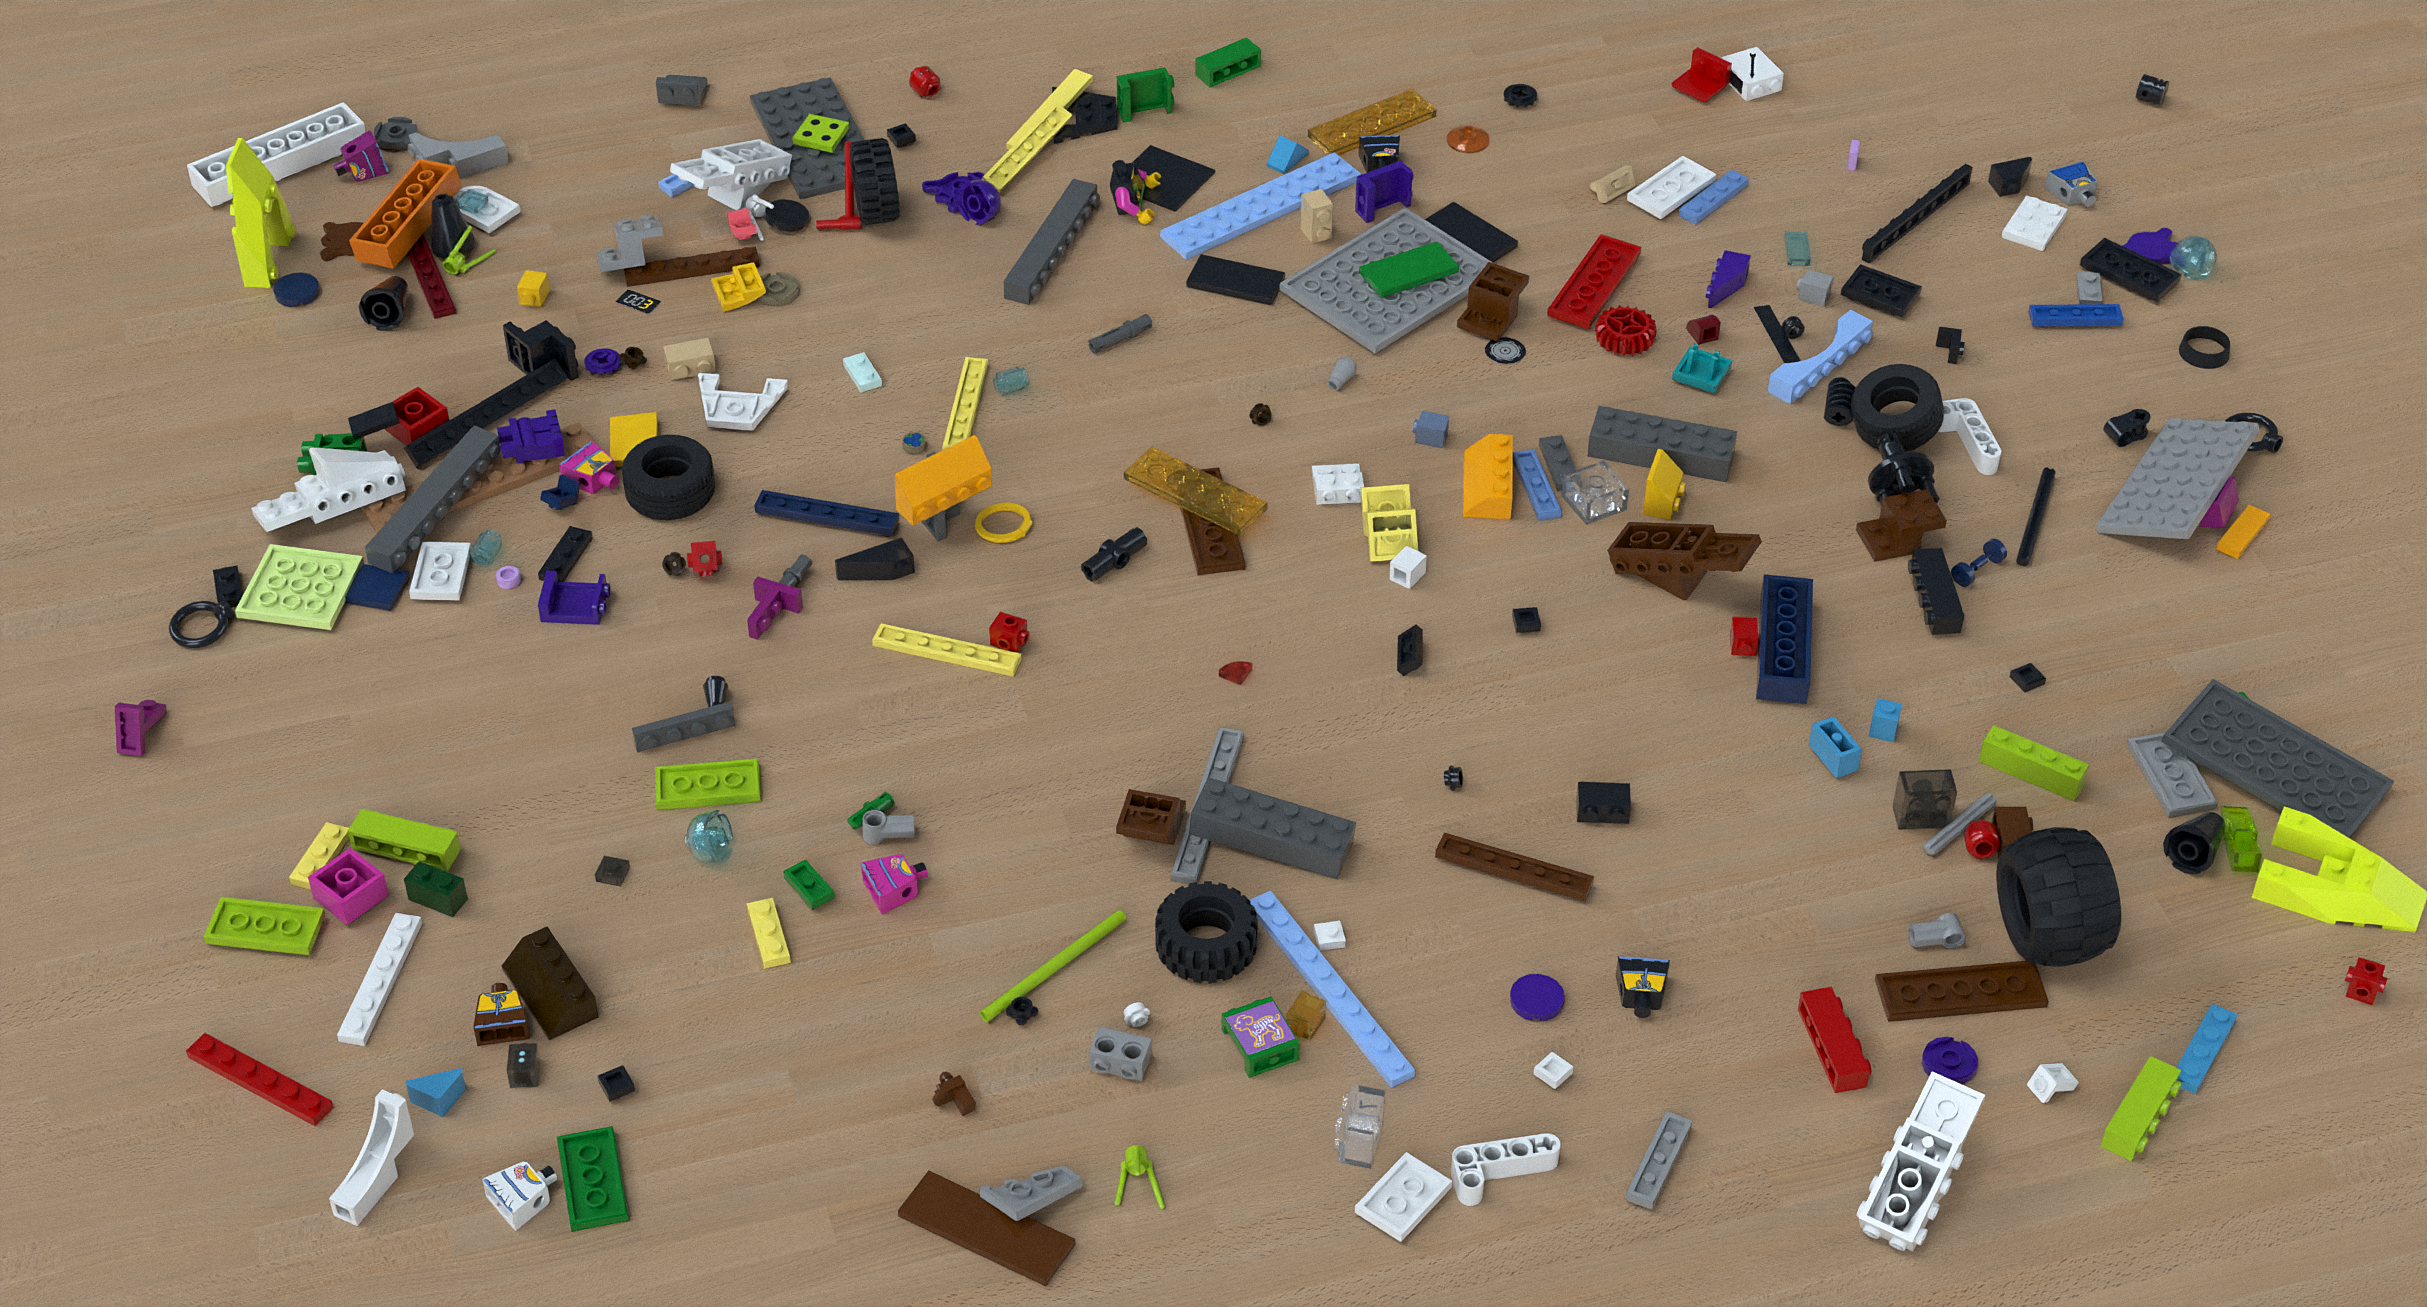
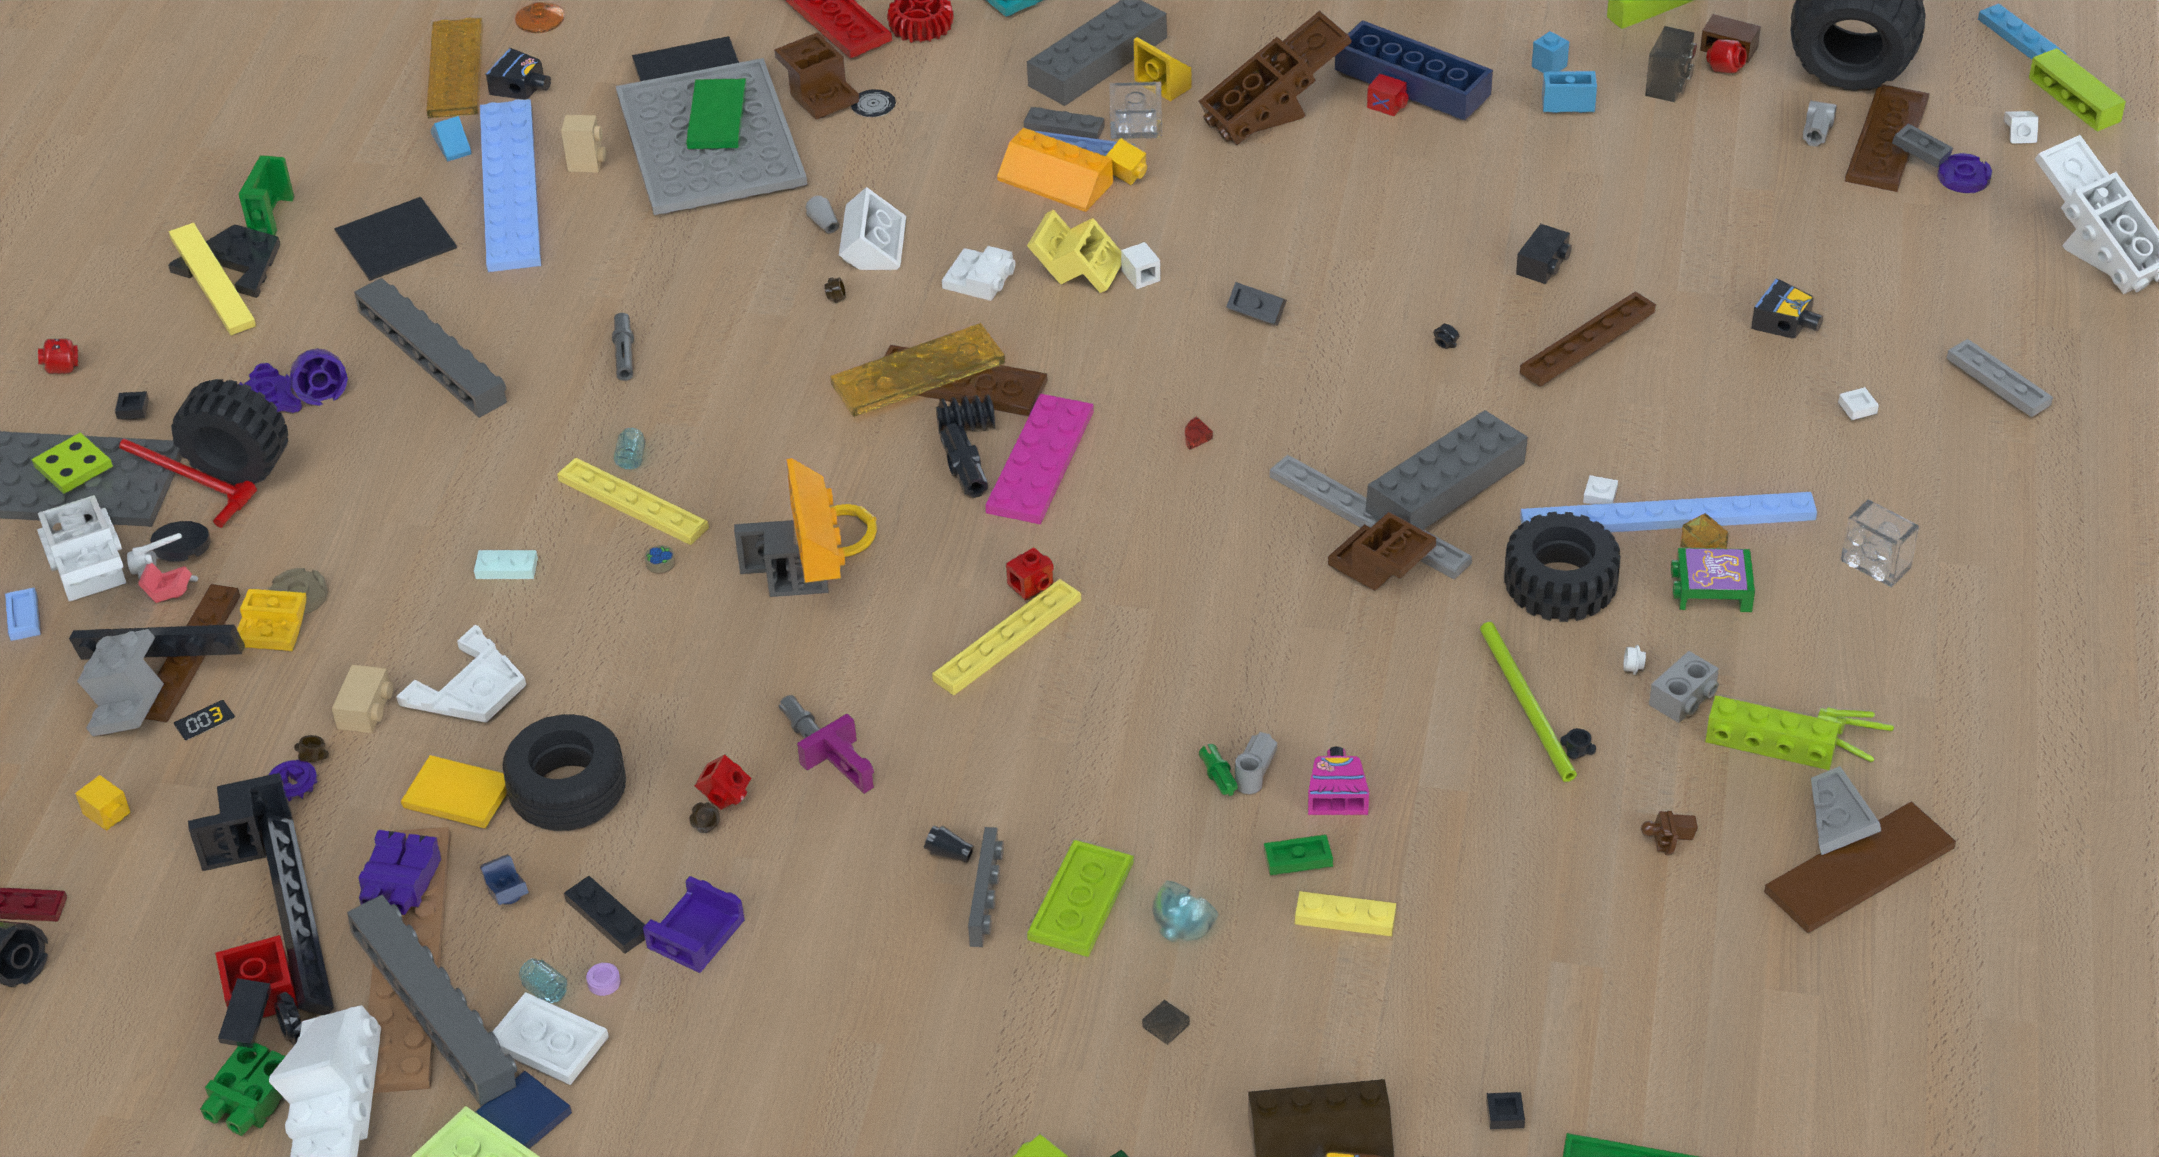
camera: 60 degrees left, 0 degrees up
(393, 439) = (288, 1017): none -> black gear
(591, 468) = (481, 840): dark pink torso -> none
(675, 245) = (169, 640): none -> black plate
(827, 512) = (720, 663): dark blue plate -> none
(879, 562) = (840, 641): black slope -> none
(1027, 147) = (260, 311): light yellow plate -> none
(1097, 1124) = (1772, 732): none -> lime brick
(1128, 188) = (411, 260): torso -> none
(1150, 596) = (1039, 459): none -> dark pink plate
(1162, 534) = (966, 412): none -> black piece
(1228, 62) = (262, 125): green brick -> none
(1235, 279) = (609, 239): black tile -> none
(1337, 408) = (872, 233): none -> white slope
(1383, 188) = (586, 82): dark purple panel -> none
(1403, 1196) = (1966, 553): white plate -> none
(1431, 429) = (957, 182): sand blue brick -> none
(1500, 1159) = (1953, 496): white beam -> none
(1526, 511) = (1127, 161): none -> yellow brick
(1526, 620) = (1267, 217): black plate -> none
(1537, 997) = (1758, 384): dark purple tile -> none
(1834, 1039) = (1912, 224): red brick -> none
(1950, 1012) = (1922, 145): none -> dark grey plate
(1959, 824) = (1705, 77): light grey axle -> none

